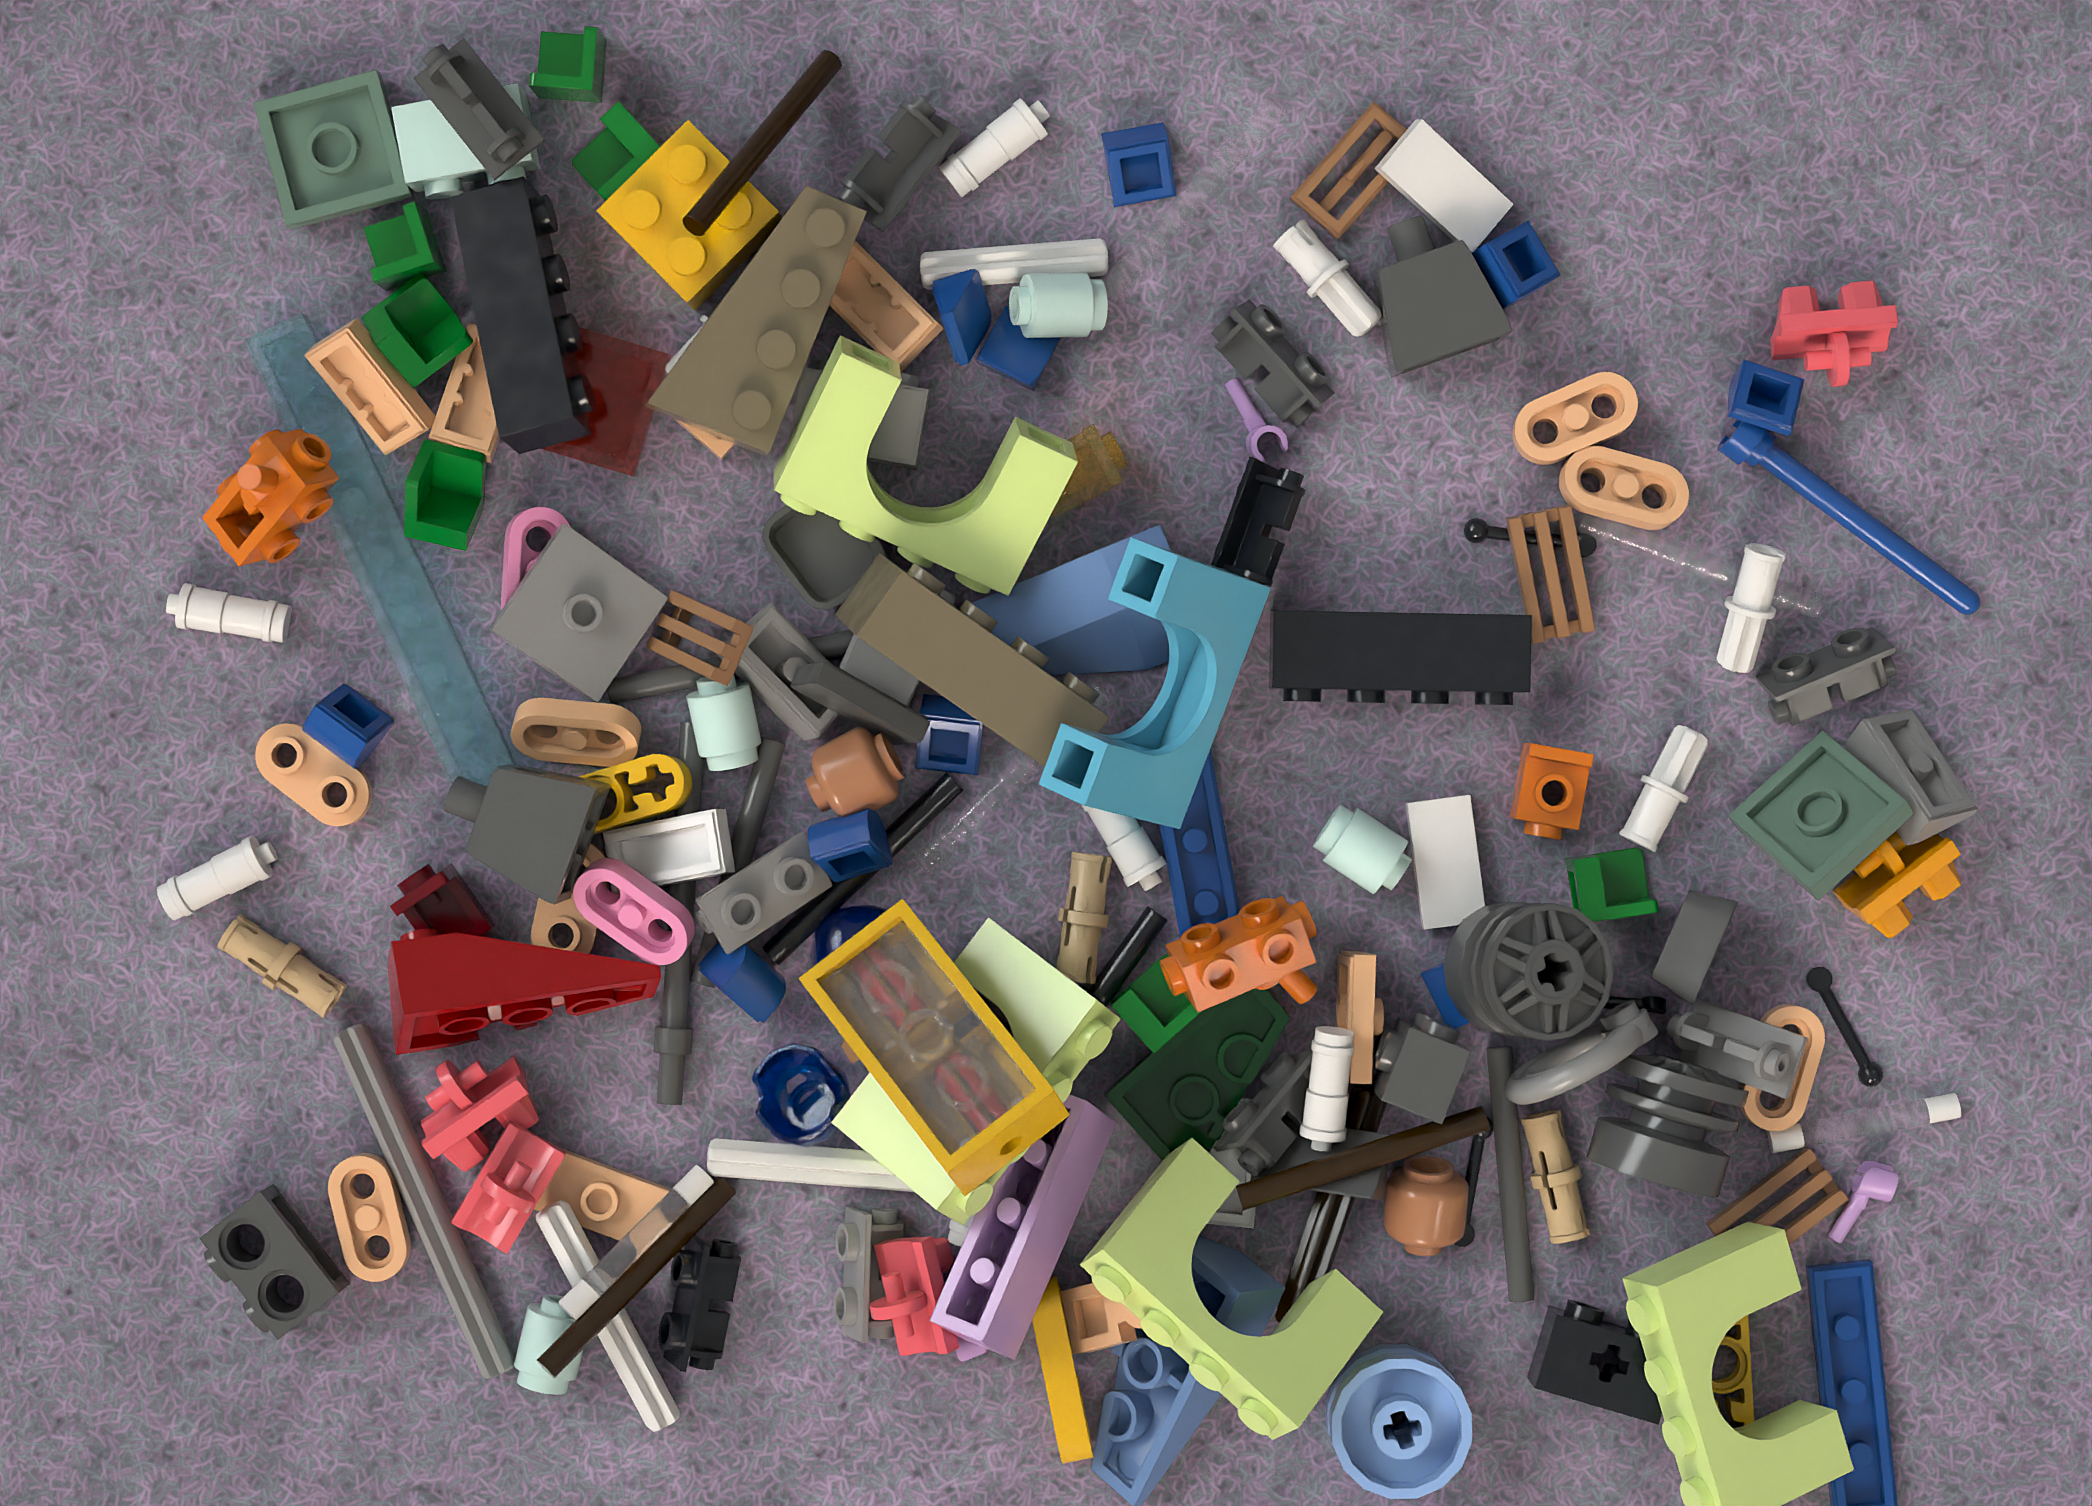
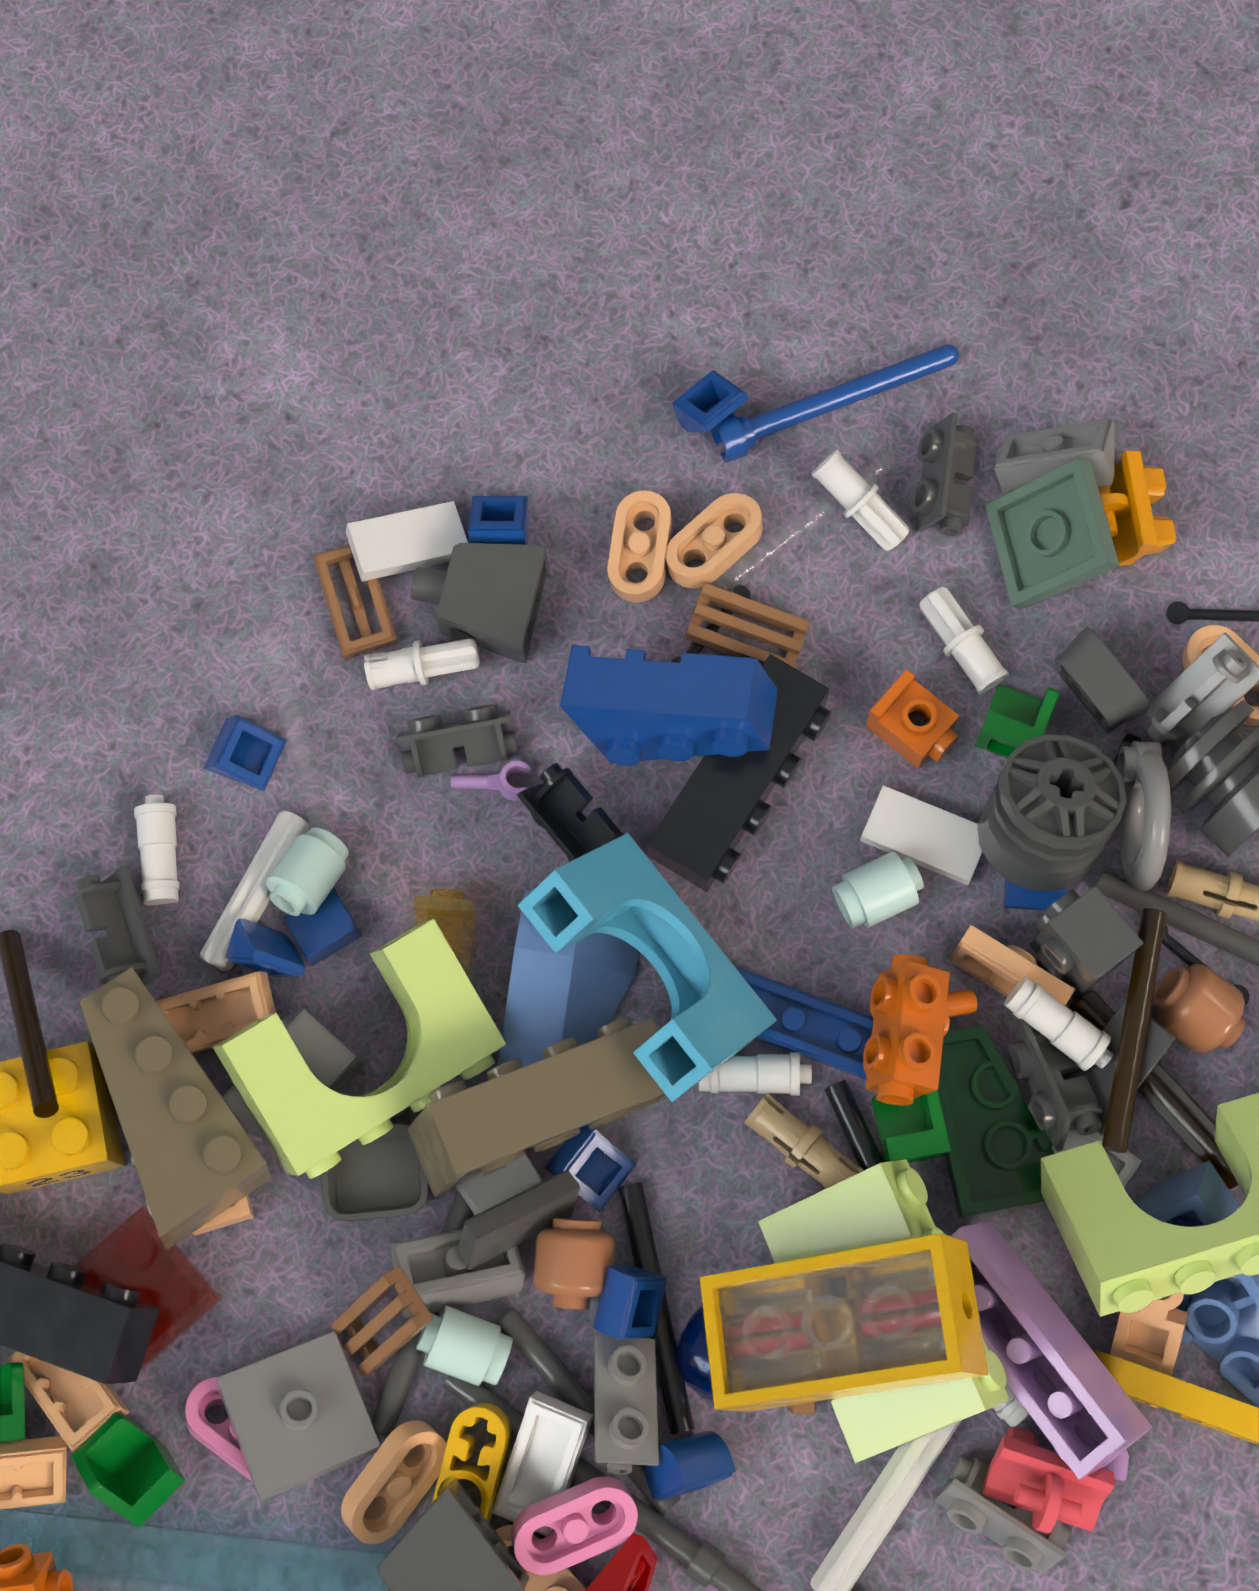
camera: 55 degrees left, 15 degrees down
(781, 1113) = (841, 1478): clear blue hair -> none
(1413, 555) = (669, 708): none -> blue wedge
(1832, 337) = (694, 337): coral hips -> none

